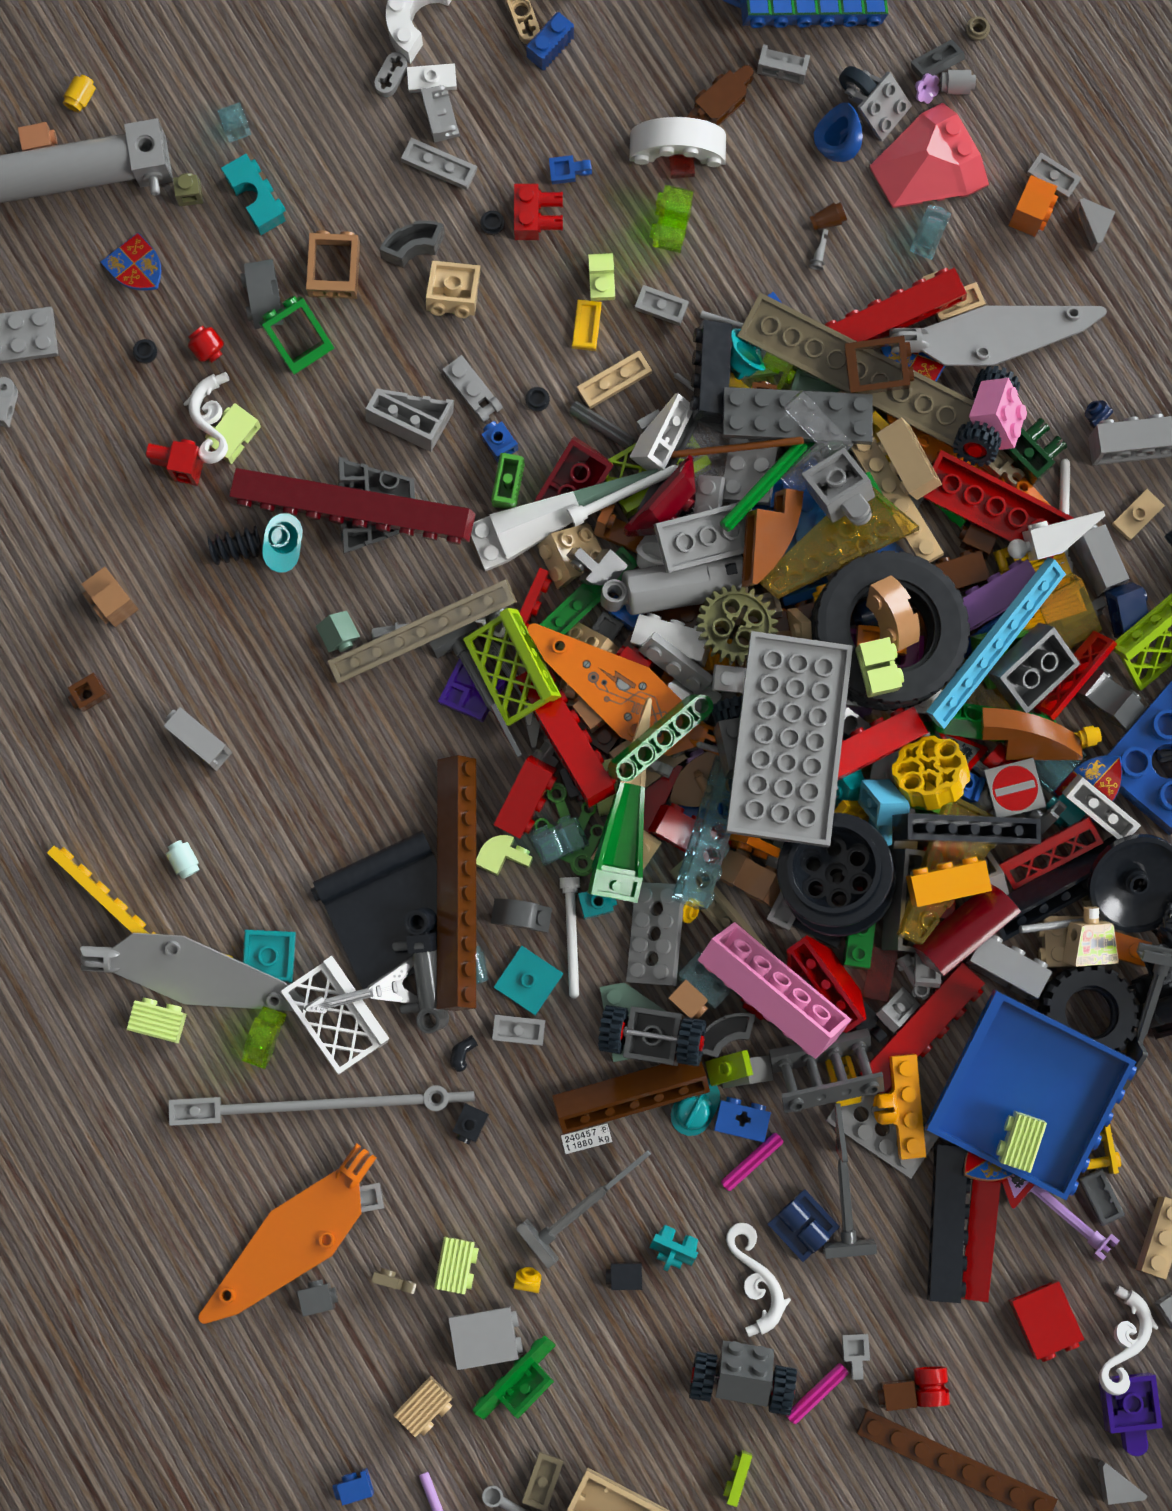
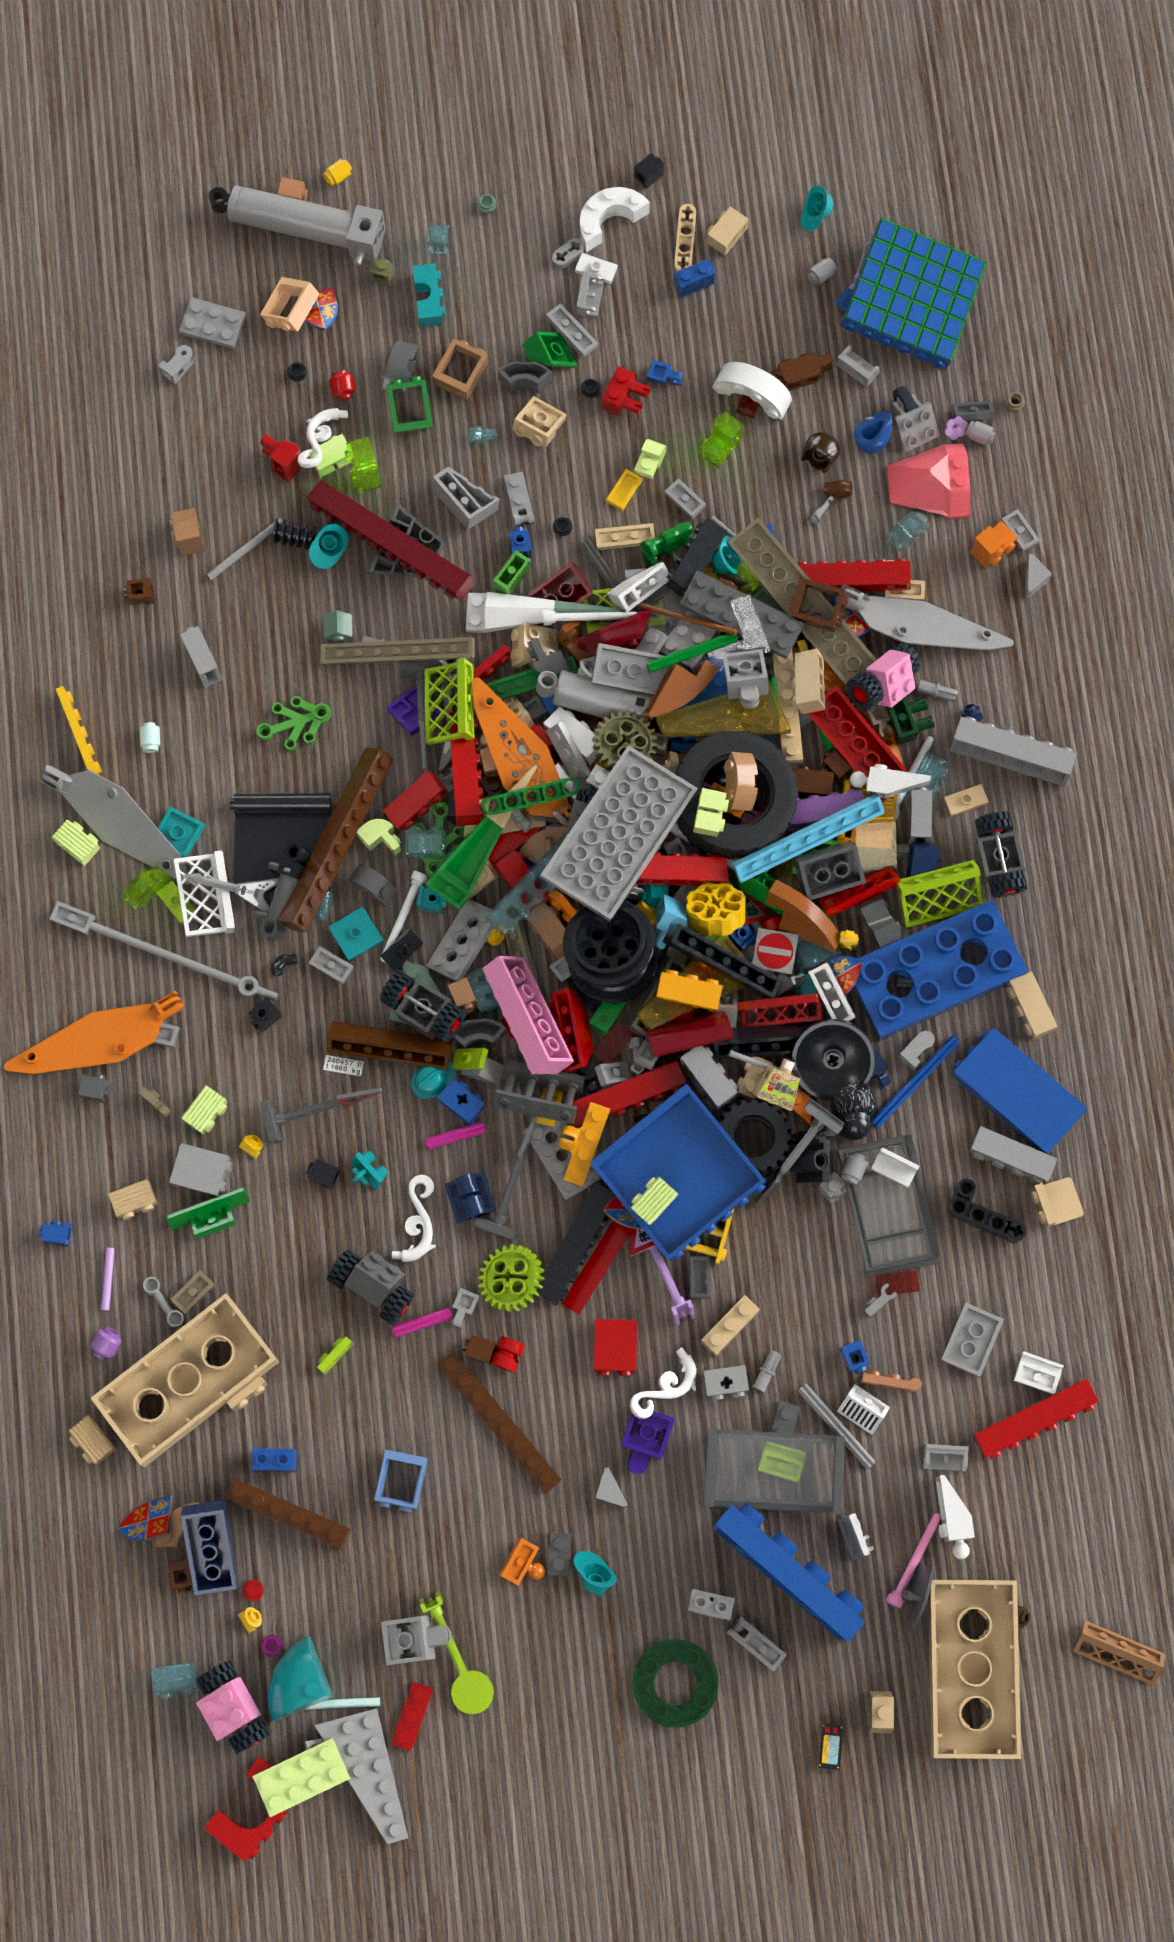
camera: 25 degrees right, 5 degrees down
(83, 272) = (279, 298): none -> light nougat window
(184, 589) = (242, 551): none -> light grey axle
(269, 55) = (486, 203): none -> sand green plate
(282, 433) = (365, 470): none -> clear neon green brick
(297, 1035) = (170, 896): none -> lime plate
(343, 762) = (297, 721): none -> bright green plant
(393, 332) = (481, 434): none -> clear light blue cone
(424, 199) = (549, 350): none -> green slope
(589, 975) = (401, 949): none -> black plate
(665, 367) = (666, 543): none -> green piece
(790, 182) = (821, 451): none -> dark brown hair
(903, 1320) = (513, 1259): none -> lime gear
(952, 1042) = (640, 1114): none -> dark brown plate
(1048, 402) = (937, 690): none -> light grey axle
(1086, 498) = (933, 767): none -> clear light blue brick

